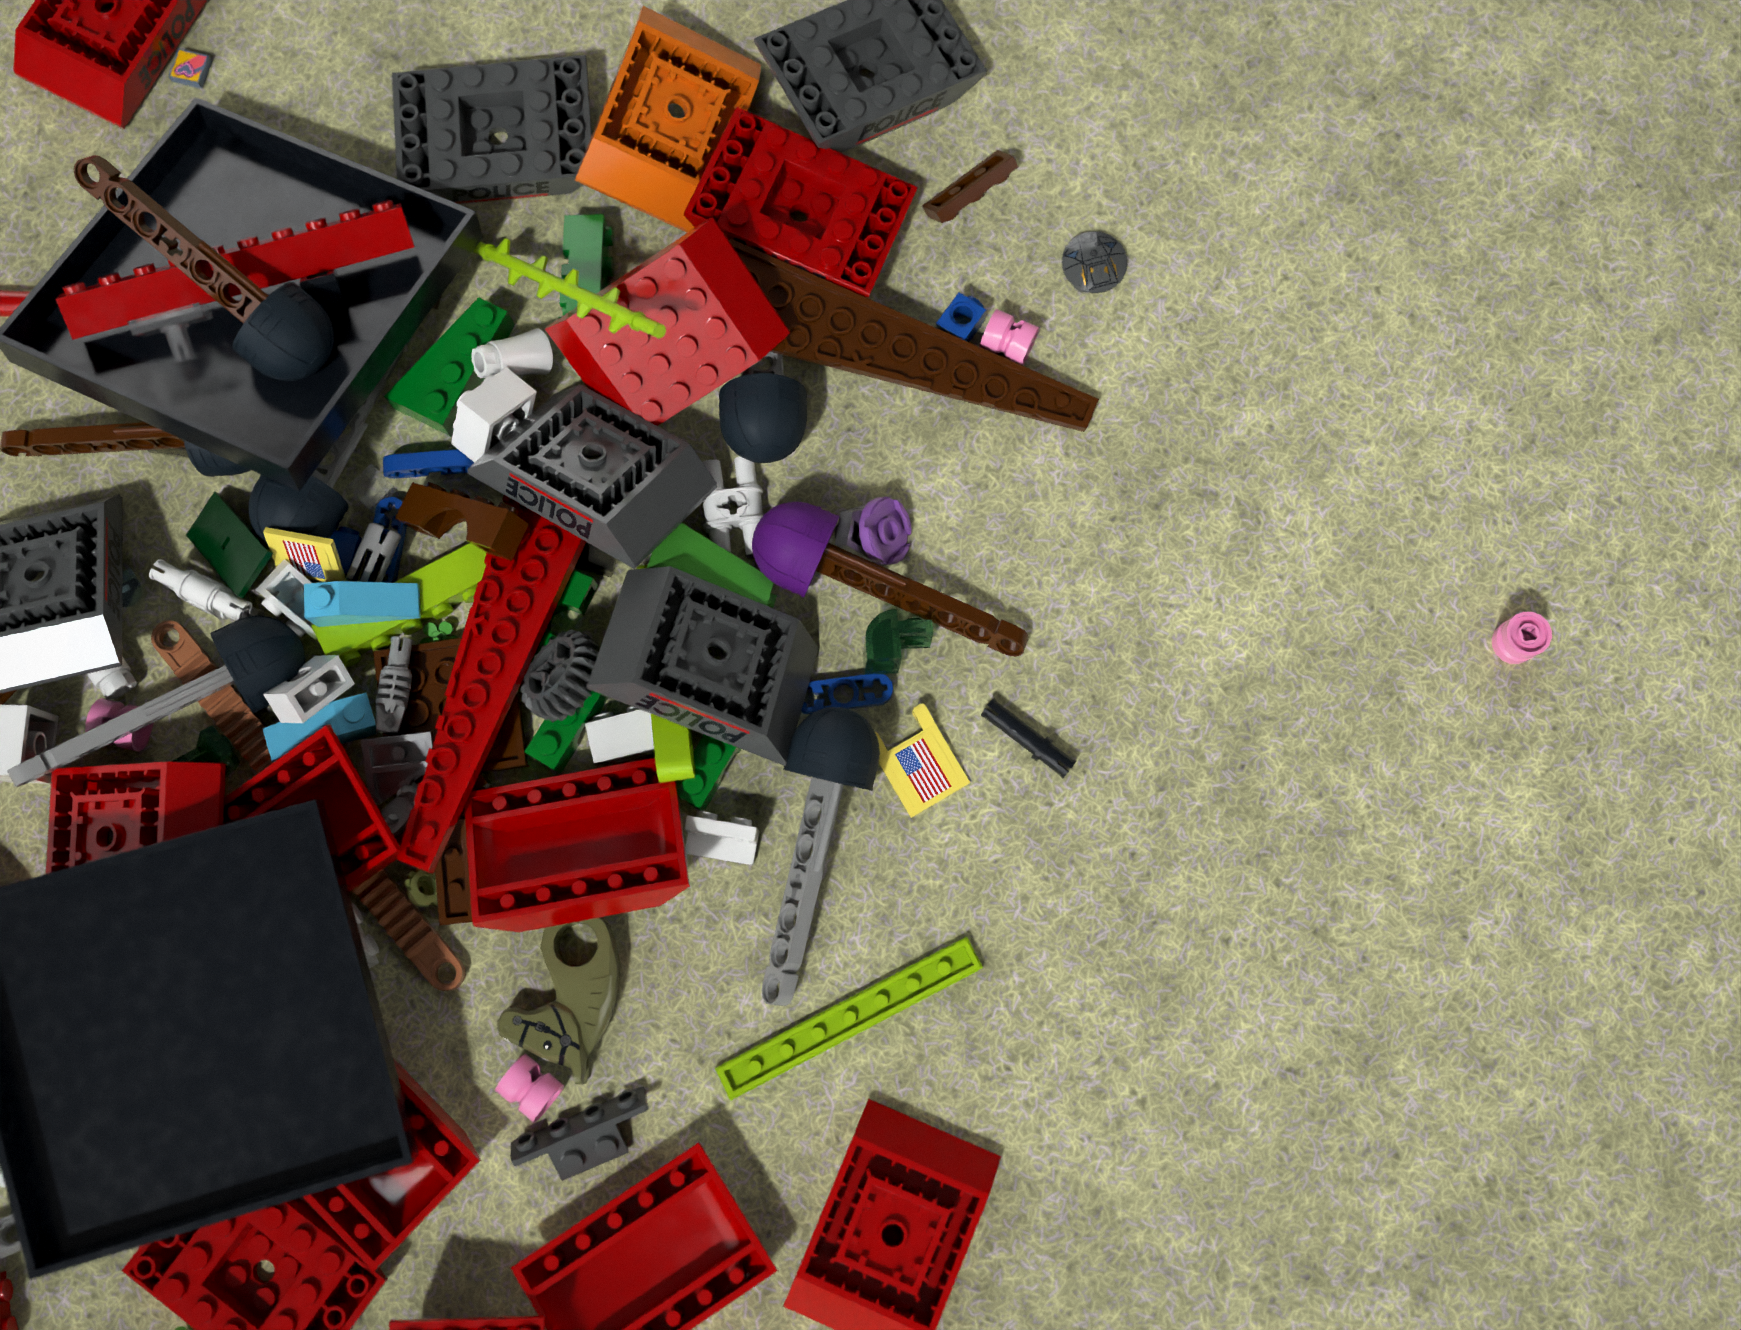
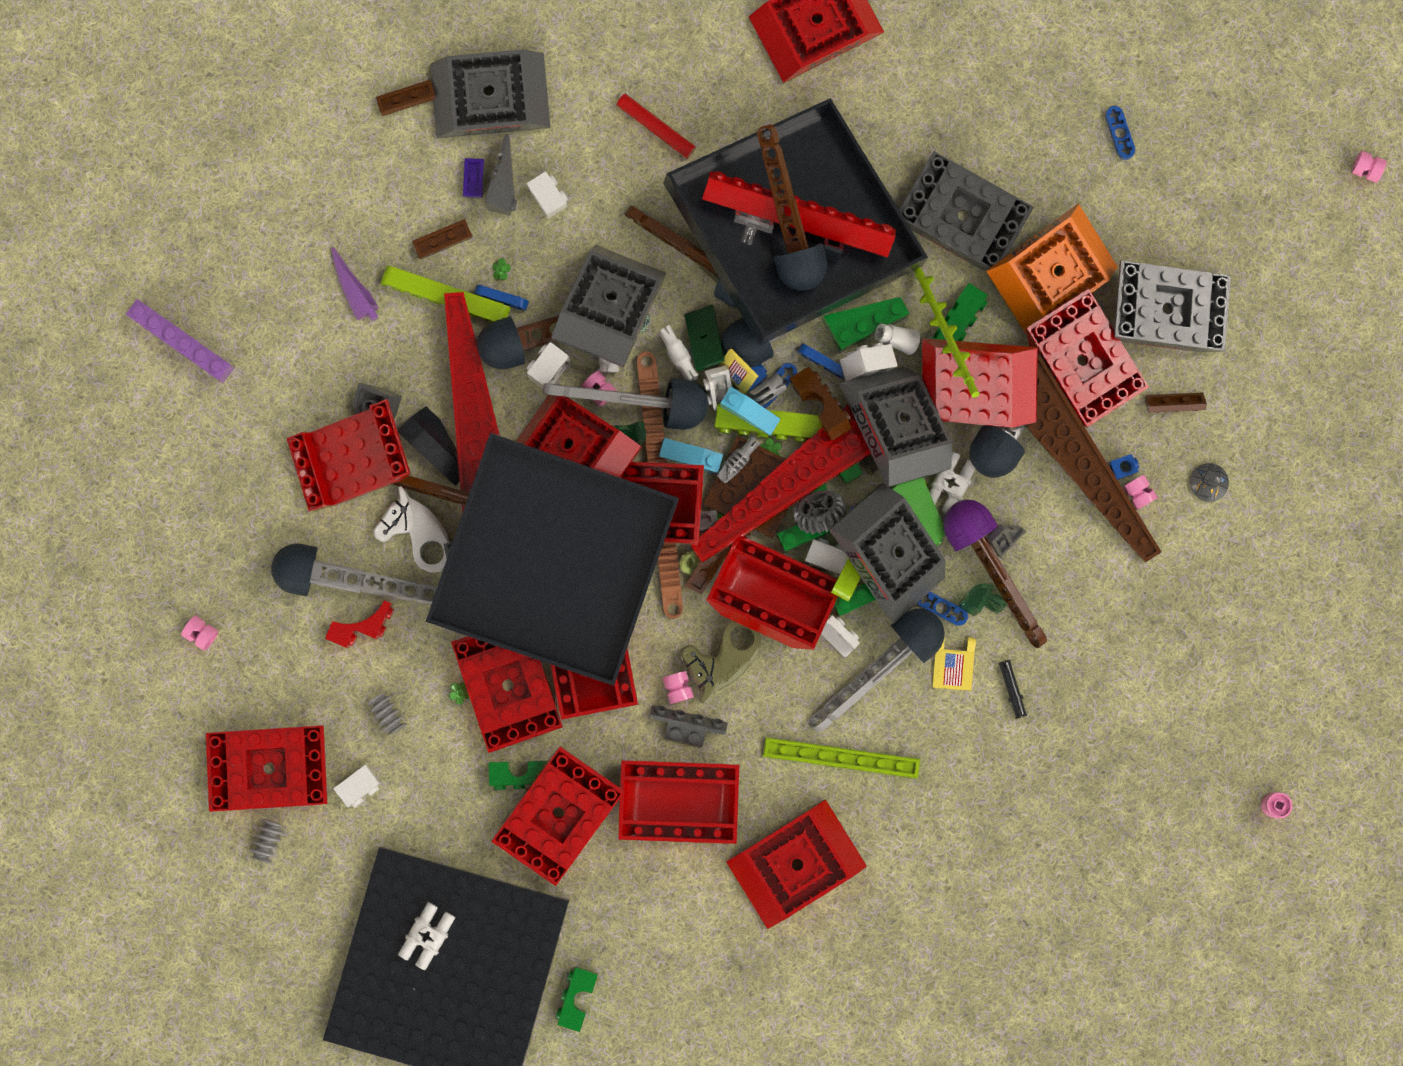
camera: 30 degrees right, 5 degrees up
(190, 68) = (835, 73): tile -> none
(313, 688) = (699, 436): white brick -> none
(394, 762) = (718, 496): flat silver wing -> none
(884, 530) = (1014, 545): medium lavender tile -> none

